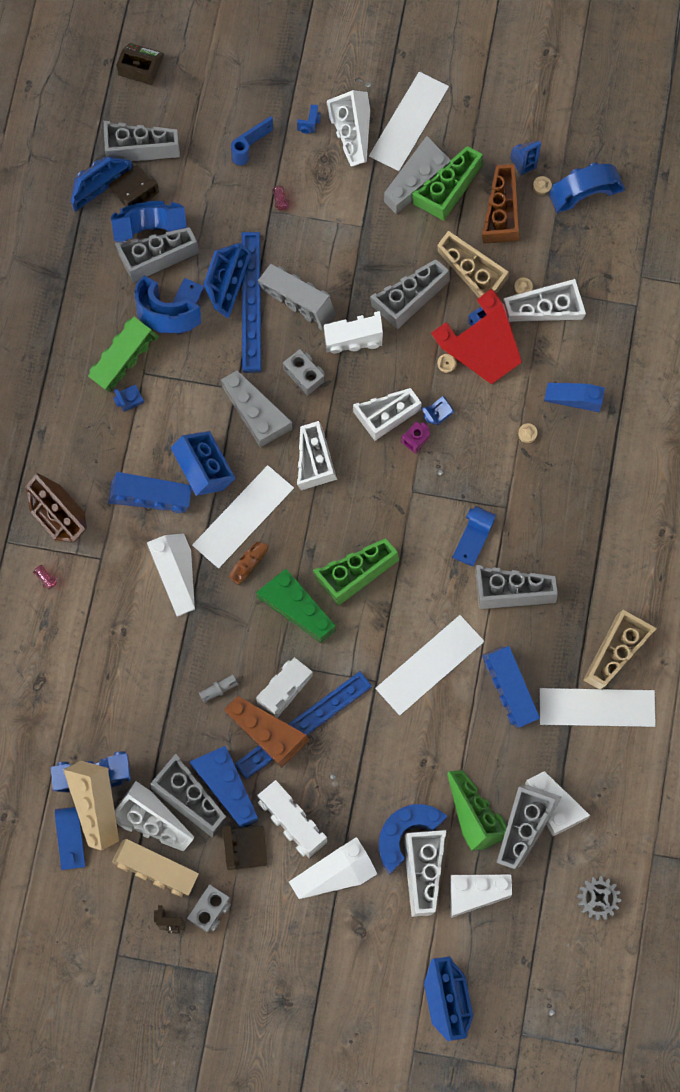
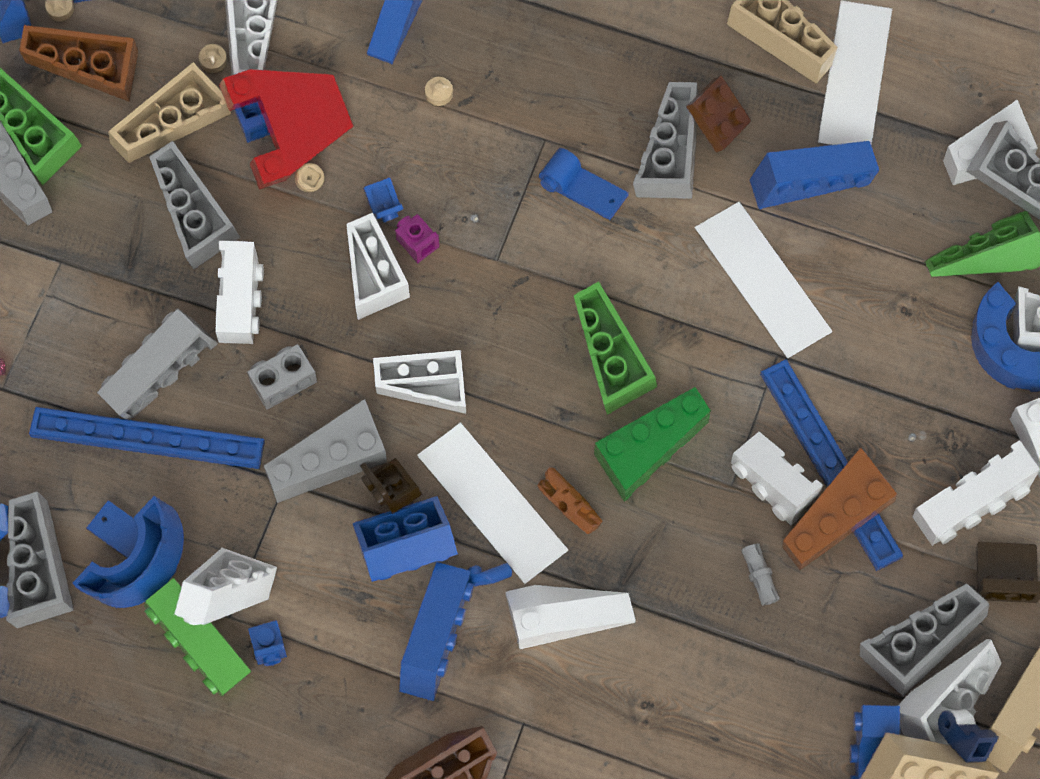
camera: 80 degrees left, 5 degrees down
(121, 825) = (965, 736): none -> dark blue leg
(150, 359) = (223, 587): none -> white wedge
(191, 522) = (489, 576): none -> blue arm
(223, 780) = (910, 582): blue wedge -> none
(226, 276) = (104, 460): blue wedge -> none
(239, 449) = (391, 485): none -> dark brown bracket
(540, 614) = (718, 114): none -> reddish brown plate

